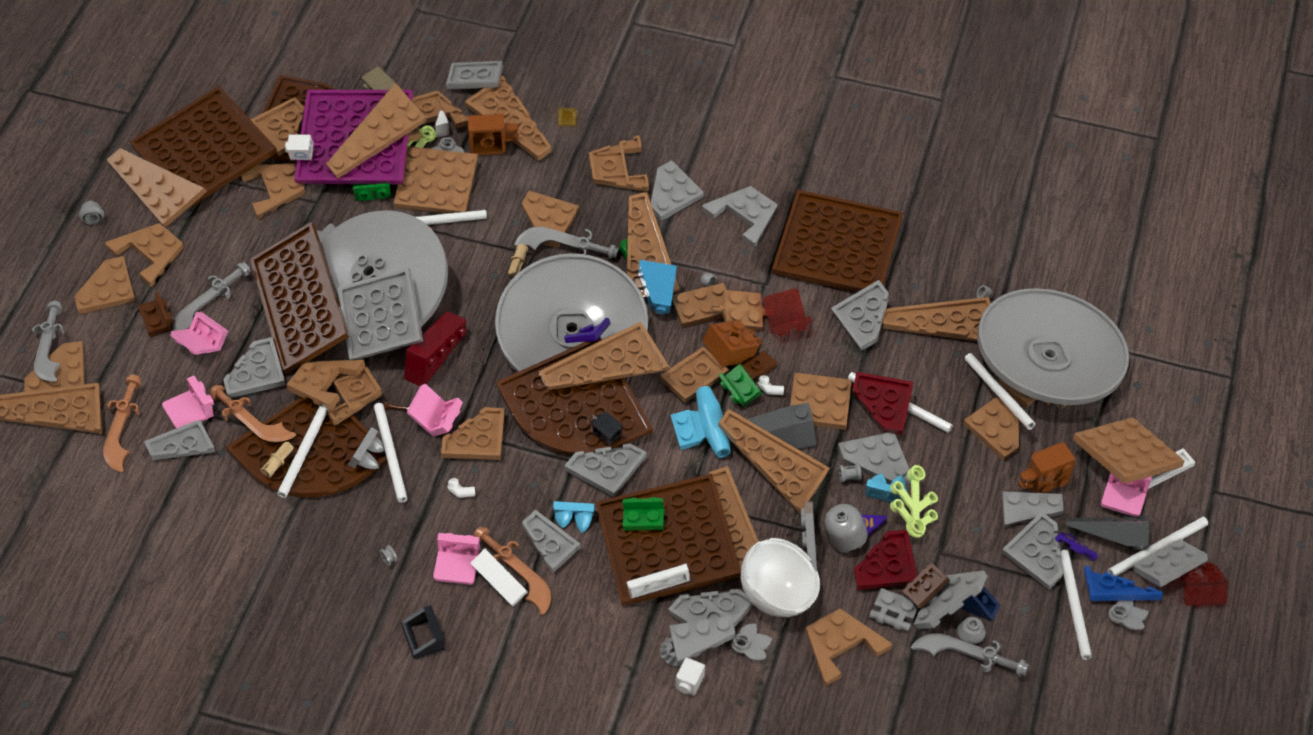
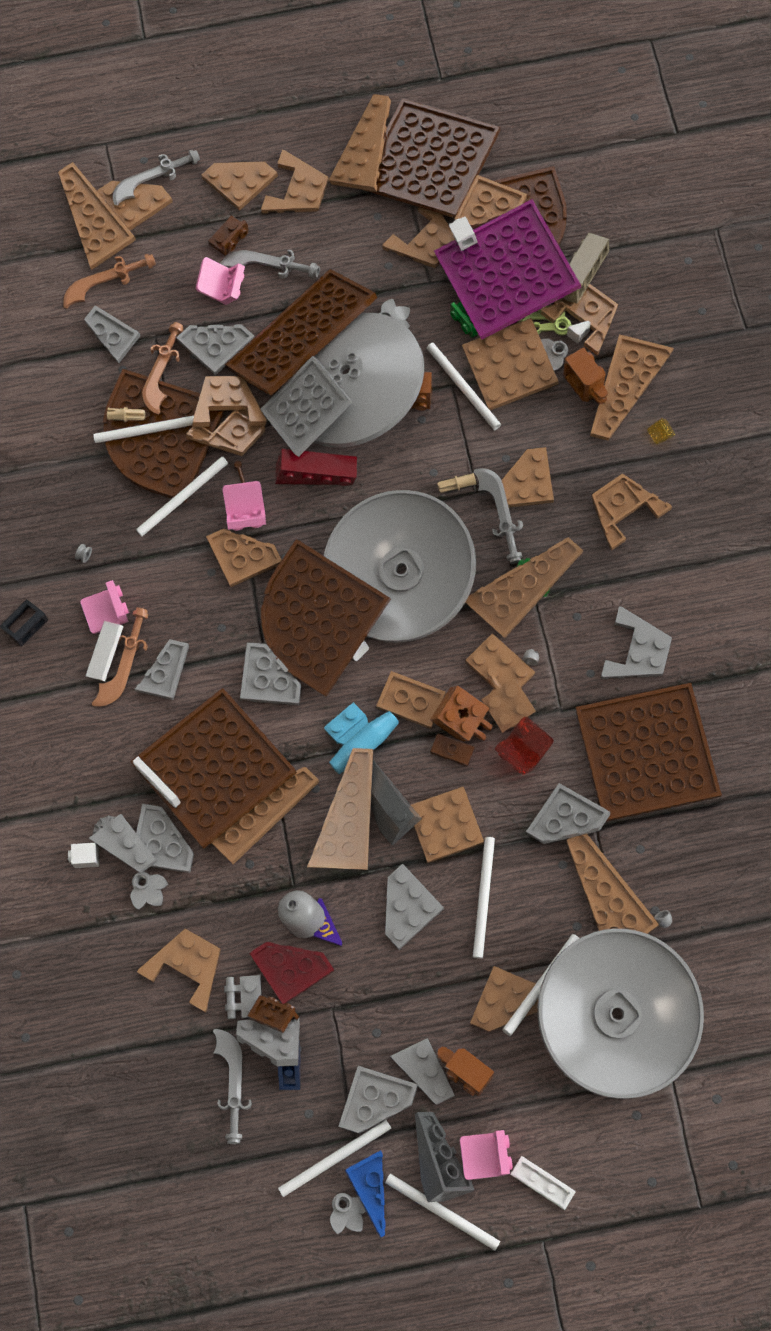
camera: 70 degrees right, 20 degrees up
(91, 213) = (307, 119): light grey cone -> none
(189, 405) = (149, 316): bright pink bracket -> none
(362, 456) = (162, 478): light grey tile -> none
(383, 126) = (526, 286): medium nougat wing -> none
(460, 491) = (180, 571): white arm -> none
(474, 75) = (658, 324): light grey tile -> none
(582, 511) = (202, 668): medium azure tile -> none
(588, 333) = (389, 588): dark purple tile -> none
(607, 428) = (297, 656): black brick -> none
(616, 357) = (371, 625): medium nougat wing -> none
(643, 514) = (220, 735): green bracket -> none
(657, 284) = (488, 617): dark azure slope -> none
(673, 191) = (624, 571): light grey plate -> none
(740, 385) = (418, 745): green bracket -> none
(768, 388) = (434, 771): white arm -> none
(779, 578) = (207, 882): white piece -> none
(808, 537) = (276, 885): light grey plate -> none
(850, 472) = (373, 889): light grey bush -> none
(880, 490) = (377, 939): medium azure tile -> none
(884, 399) = (470, 883): dark red plate -> none
(914, 526) = (362, 964): yellowish green plant -> none
(971, 630) = (261, 1070): light grey cone -> none
(1076, 545) = (399, 1131): dark purple tile -> none
(1128, 450) = (531, 1138): medium nougat plate -> none
(1170, 563) = (423, 1231): light grey plate -> none
(1205, 586) = (419, 1270): clear red bracket -> none

